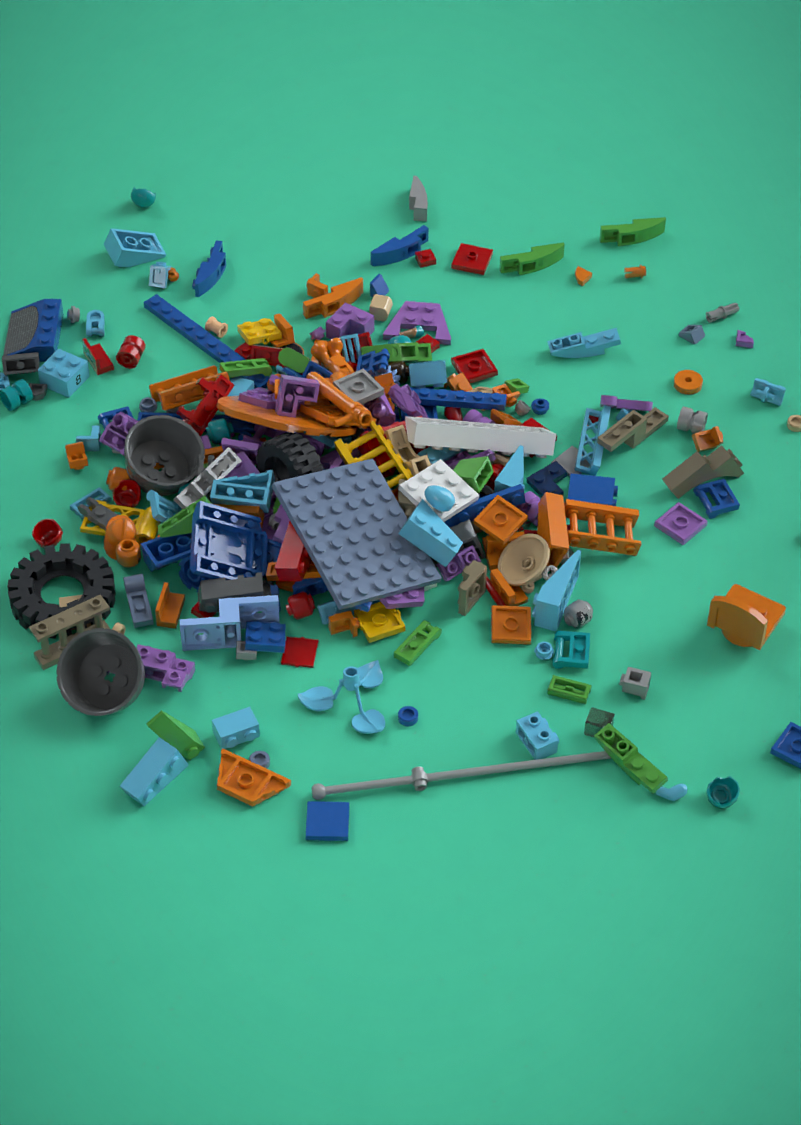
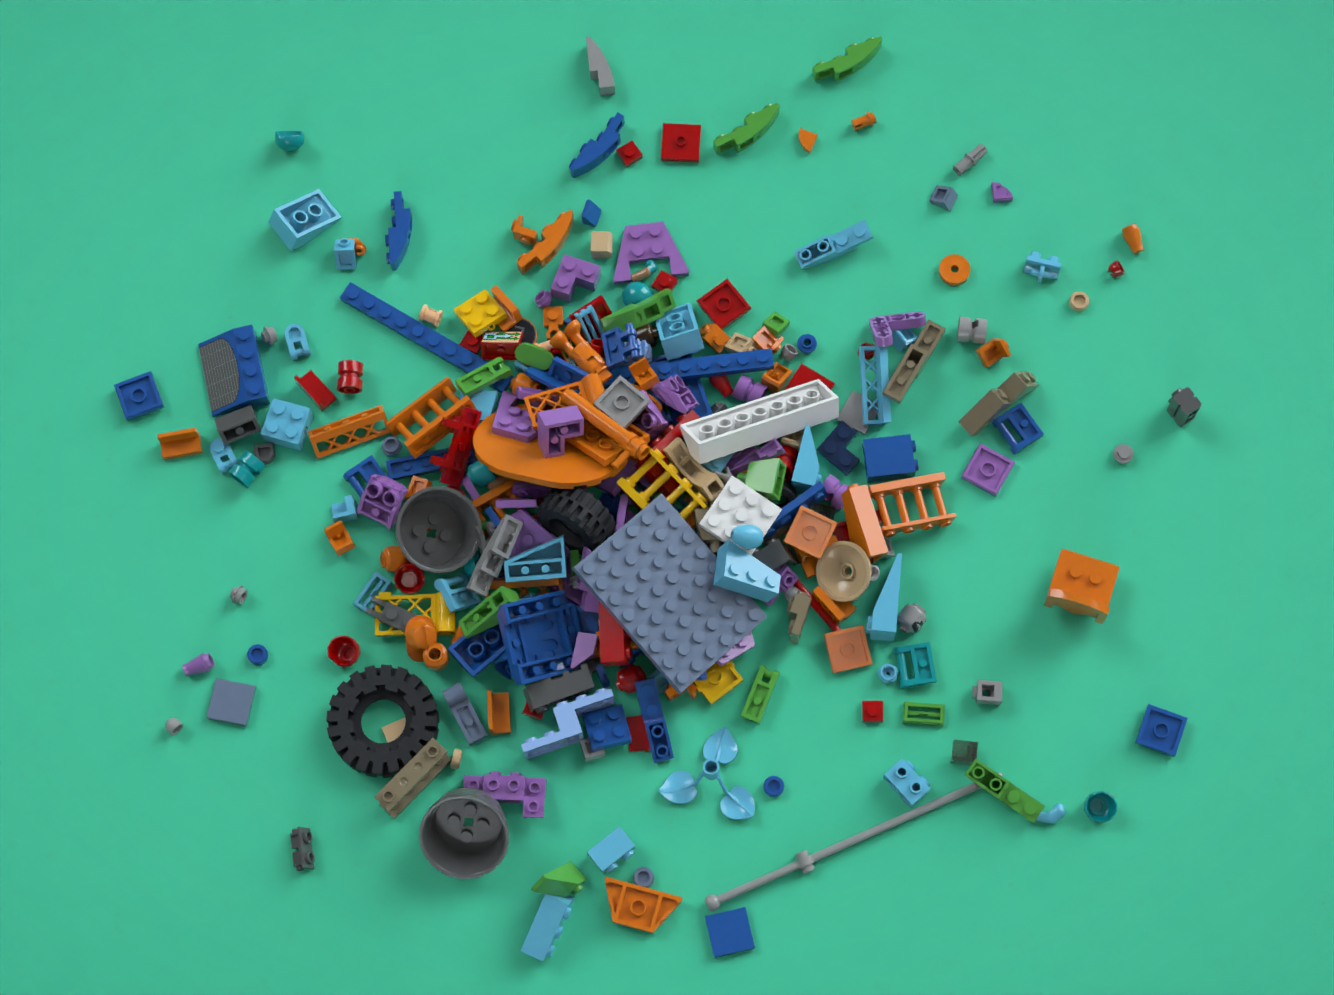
camera: 10 degrees left, 25 degrees up
(114, 383) = (346, 425): none -> orange fence
(265, 565) = (584, 649): none -> medium lavender tile
(311, 637) = (653, 719): none -> blue slope
(520, 677) = (872, 711): none -> red plate

